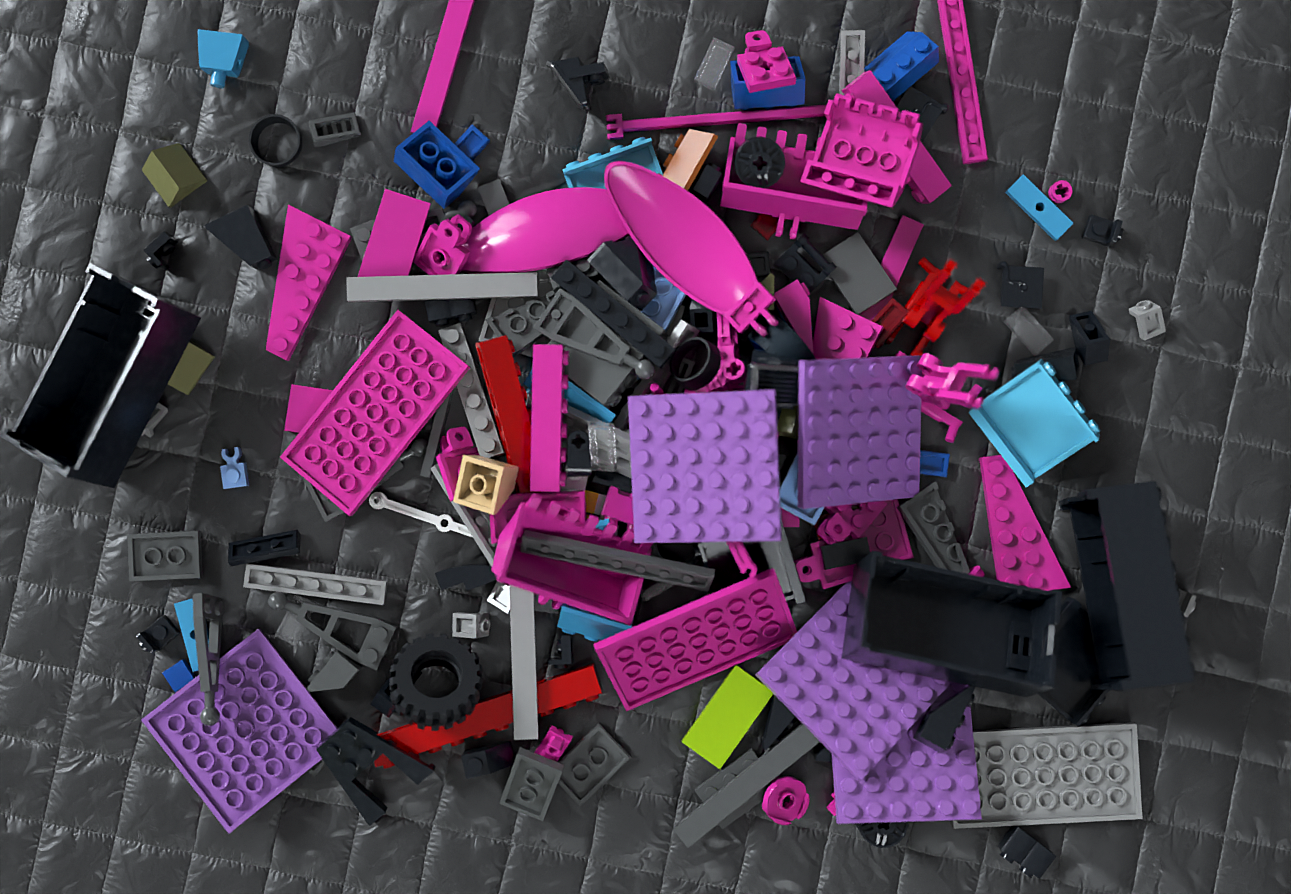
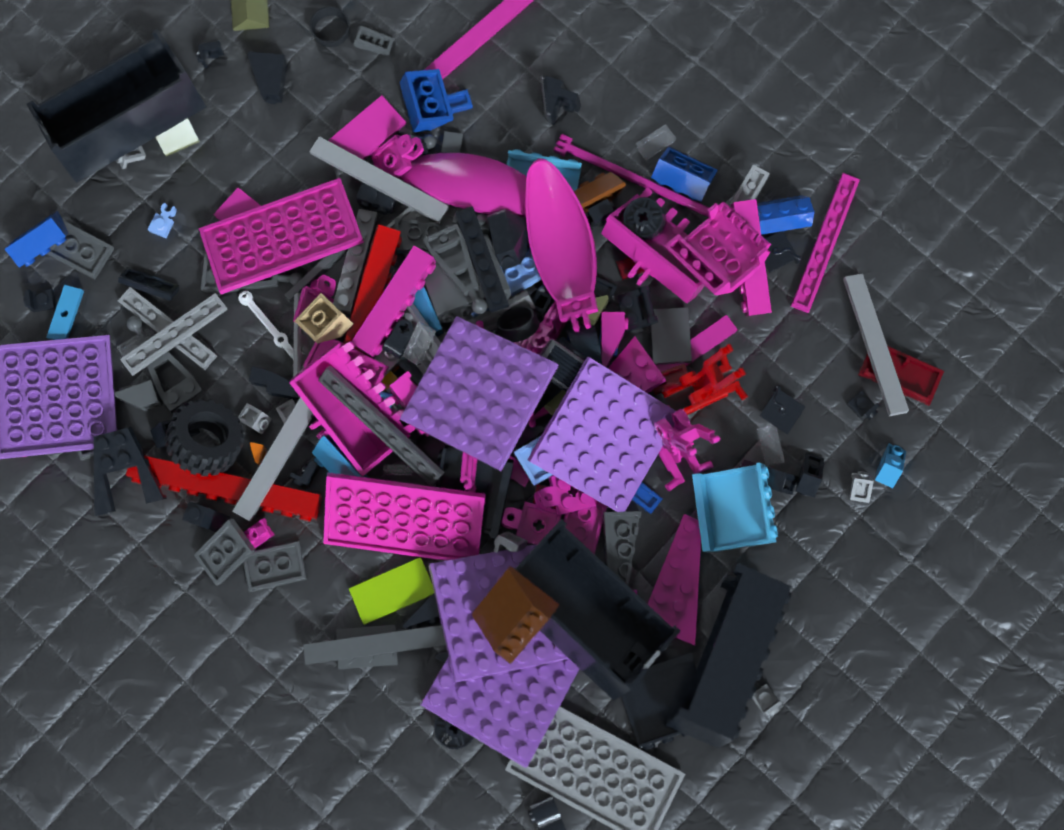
camera: 30 degrees right, 10 degrees down
(112, 573) = (37, 240): none -> slope
(179, 675) = (35, 334): blue tile -> none
(208, 609) = (60, 335): dark grey plate -> none
(306, 265) = (297, 118): dark pink wing -> none
(328, 589) = (173, 334): none -> light grey plate
(499, 658) = (259, 452): none -> orange slope
(761, 56) = (687, 158): dark pink plate -> none
(777, 791) = (395, 663): dark pink plate -> none
(822, 596) = (510, 542): none -> light grey bracket
(844, 552) = (542, 520): black tile -> none
(885, 682) = (513, 614): none -> reddish brown slope
(939, 725) = (539, 678): black slope -> none
(1050, 218) = (823, 353): dark azure tile -> none
(1058, 198) = (853, 359): dark pink bush -> none
(1081, 156) = (875, 345): none -> light grey tile
(1121, 170) = (915, 376): none -> dark red container
(1167, 278) = (891, 465): none -> dark azure slope

